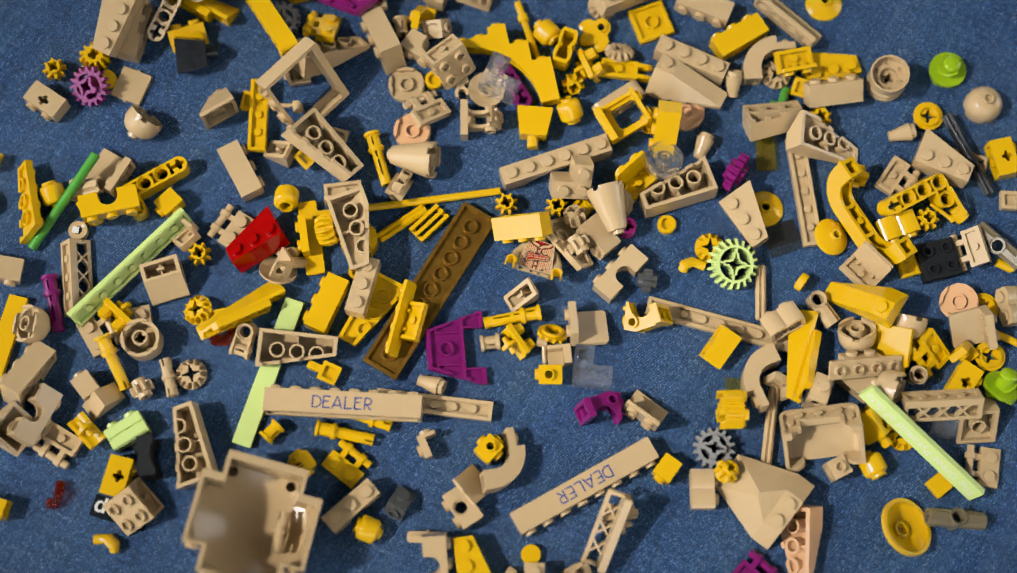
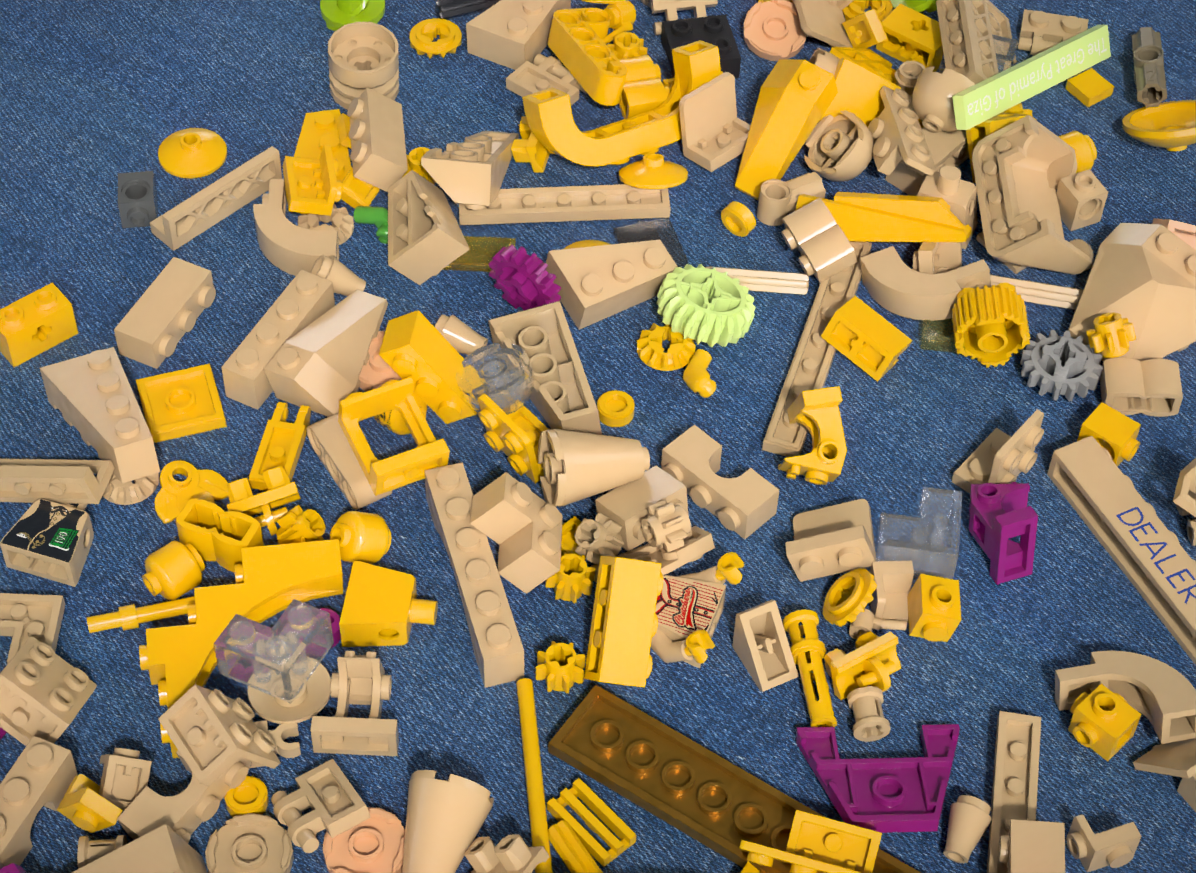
camera: 85 degrees left, 25 degrees down
(619, 52) = (241, 450): tan gear -> none
(646, 280) = (735, 437): dark grey gear -> none
(738, 36) = (240, 266): yellow brick -> none
(903, 133) = (464, 63): tan cone -> none

